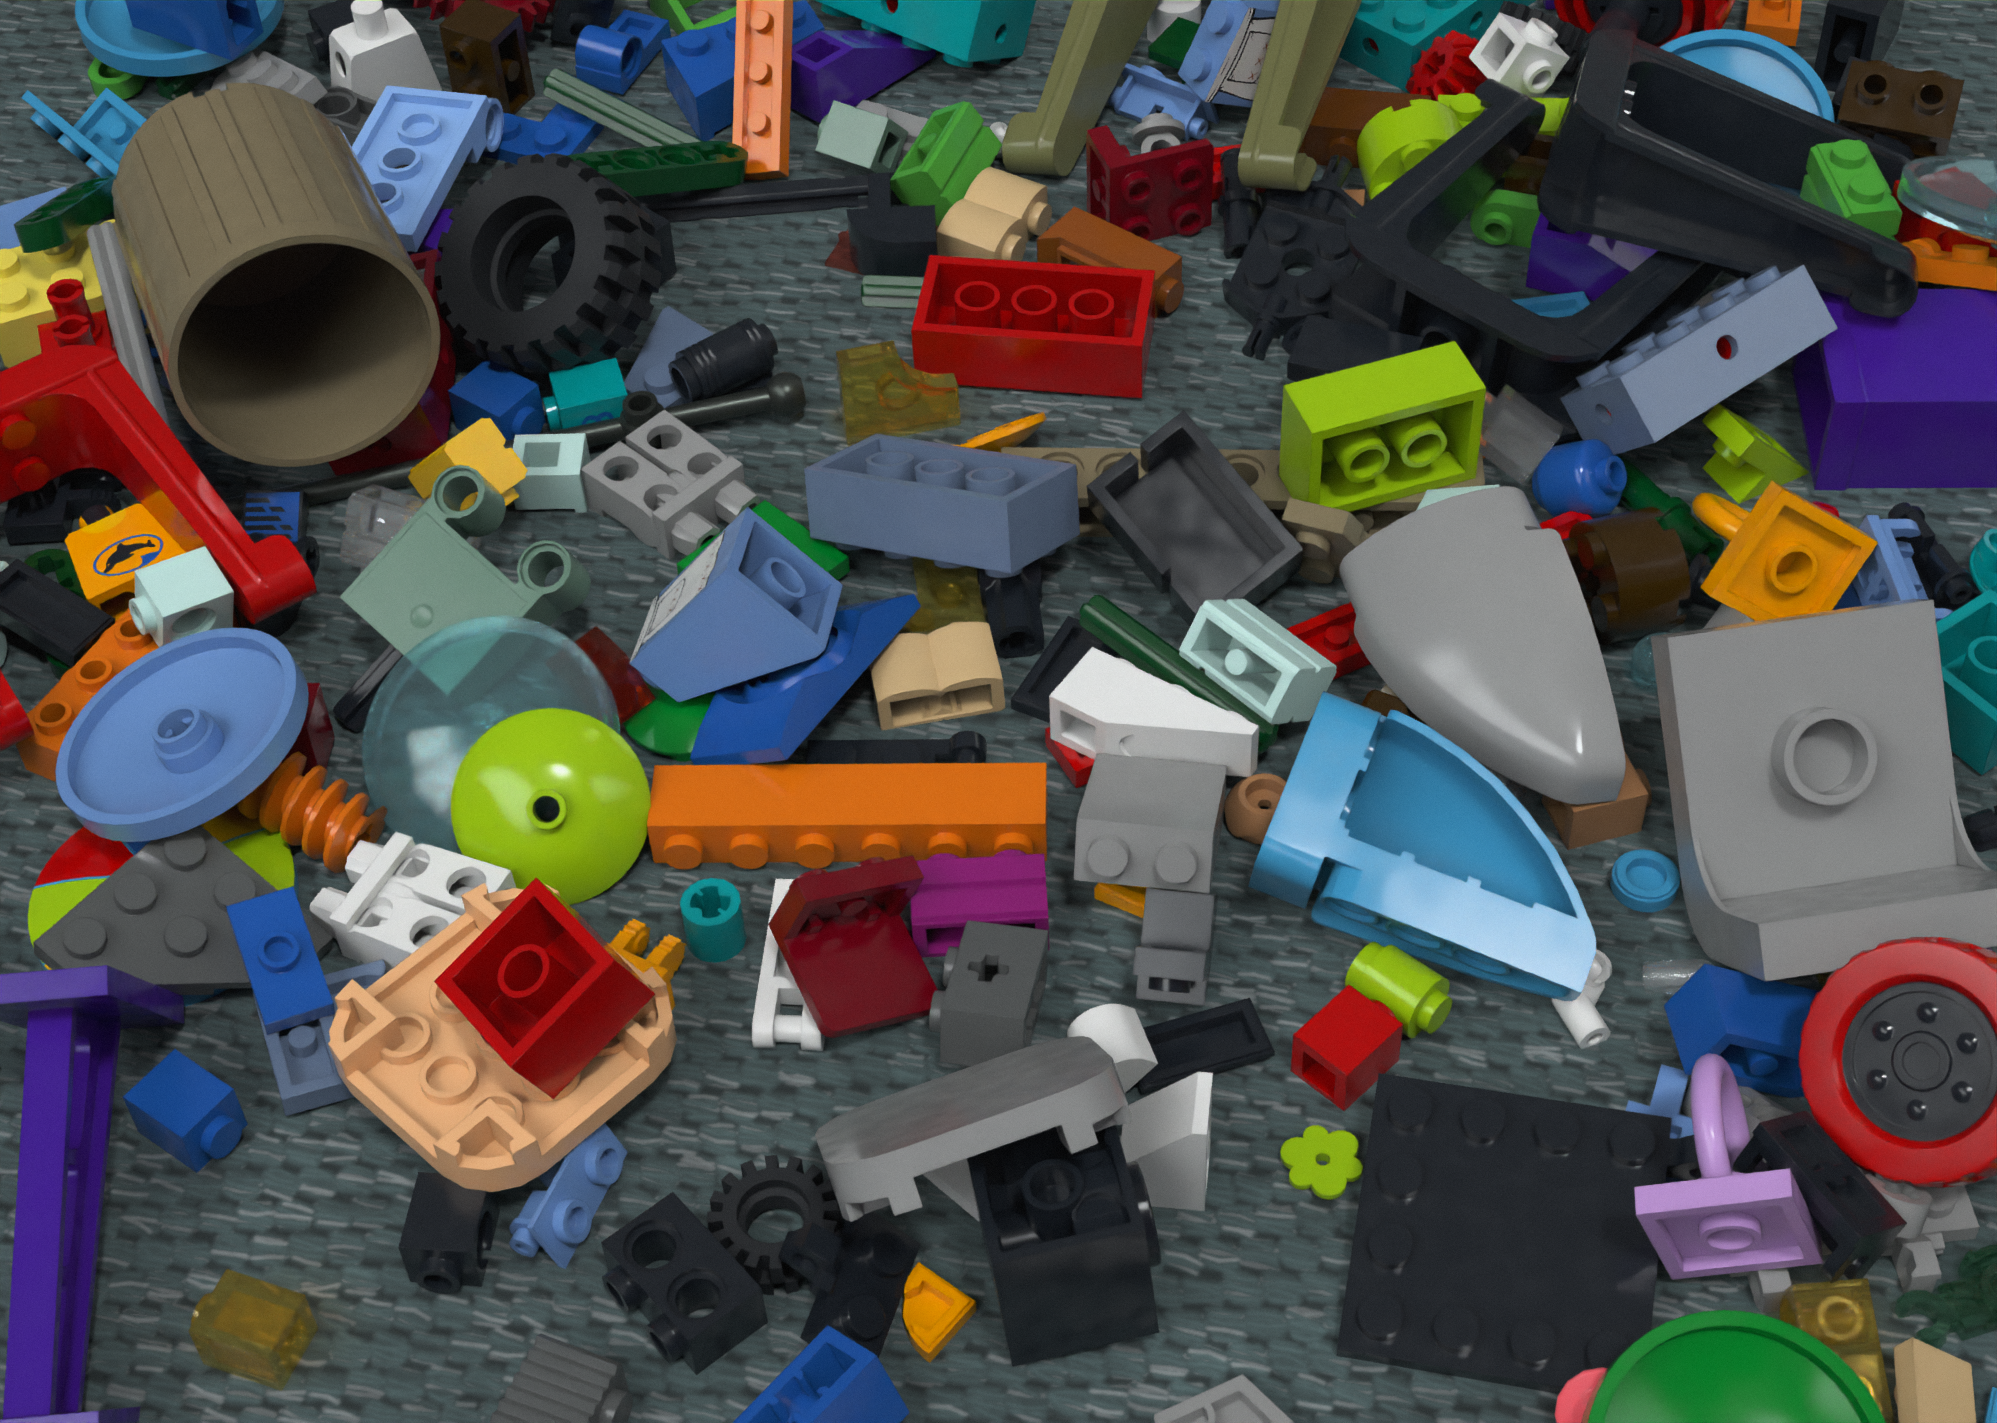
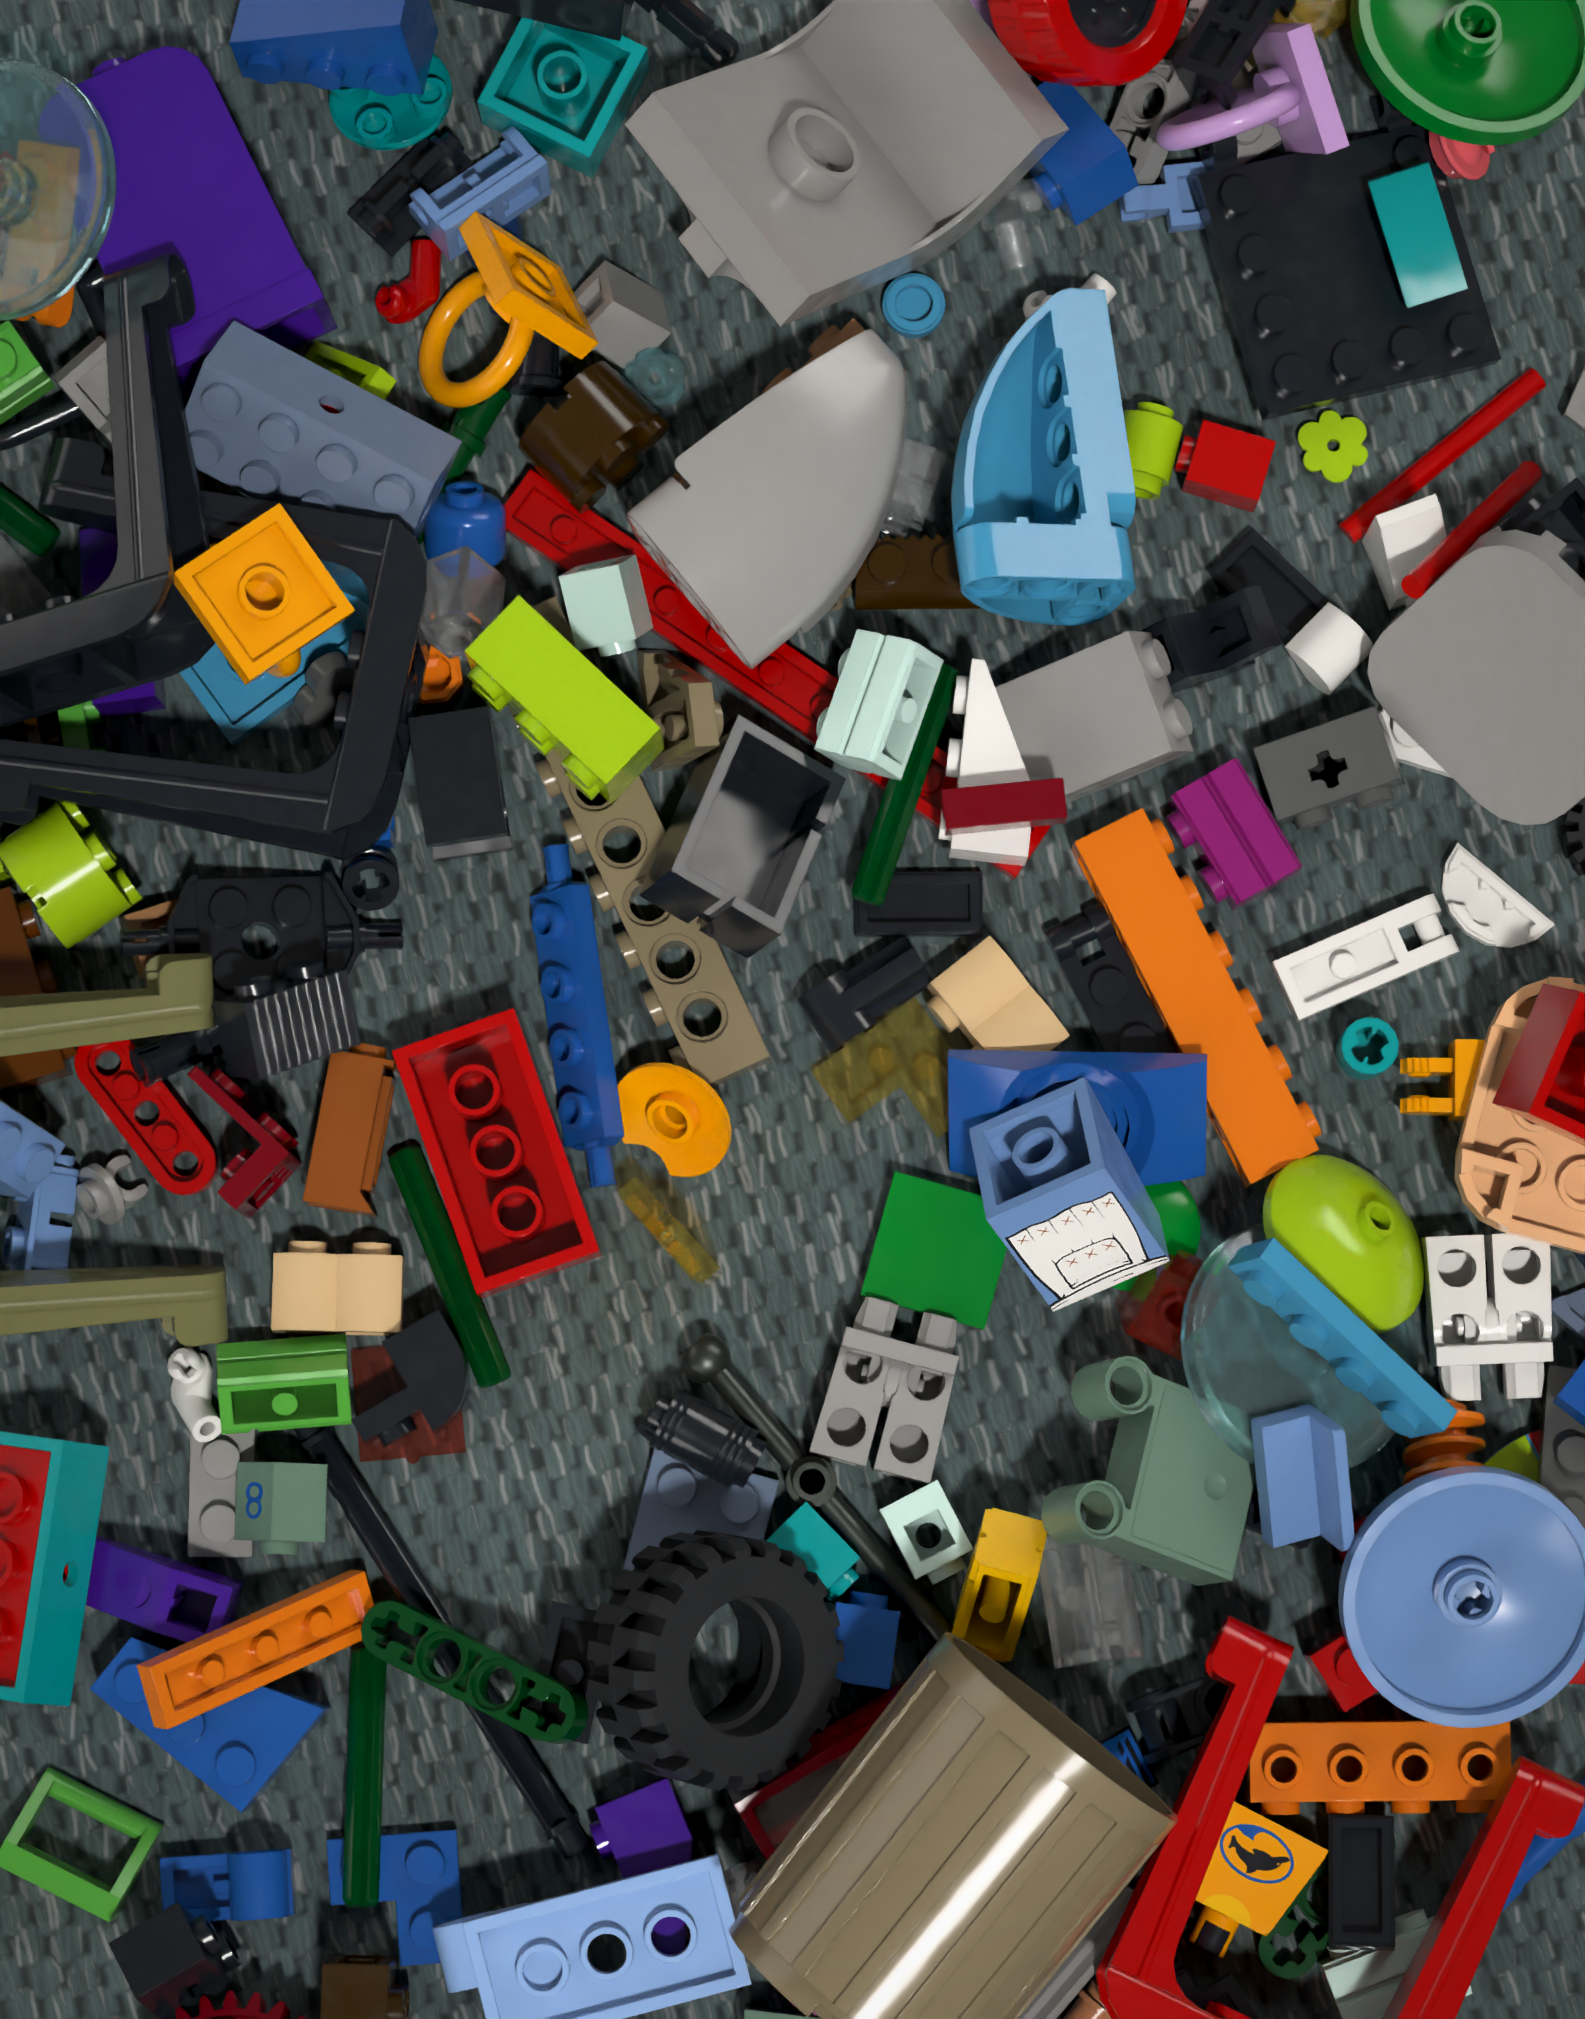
camera: 120 degrees left, 35 degrees up
(181, 597) = (1313, 1727): light aqua brick -> none
(377, 658) = (1302, 1478): none -> medium blue panel
(445, 722) = (1343, 1339): none -> dark azure plate
(782, 1089) = (1487, 905): none -> white tile
(852, 946) = (1354, 894): dark red bracket -> none
(943, 503) = (824, 1089): sand blue brick -> none
(1093, 409) = (577, 1016): none -> blue plate
(1103, 681) = (1004, 806): none -> dark red piece
(1168, 1221) = (1471, 528): none -> red bar
(1218, 220) = (286, 1020): none -> black brick
(1243, 803) = (999, 632): medium nougat plate -> none
(1261, 1260) = (1444, 453): none -> red bar
(1532, 1291) = (1417, 234): none -> teal slope
(1573, 248) = (263, 596): none -> light orange tile

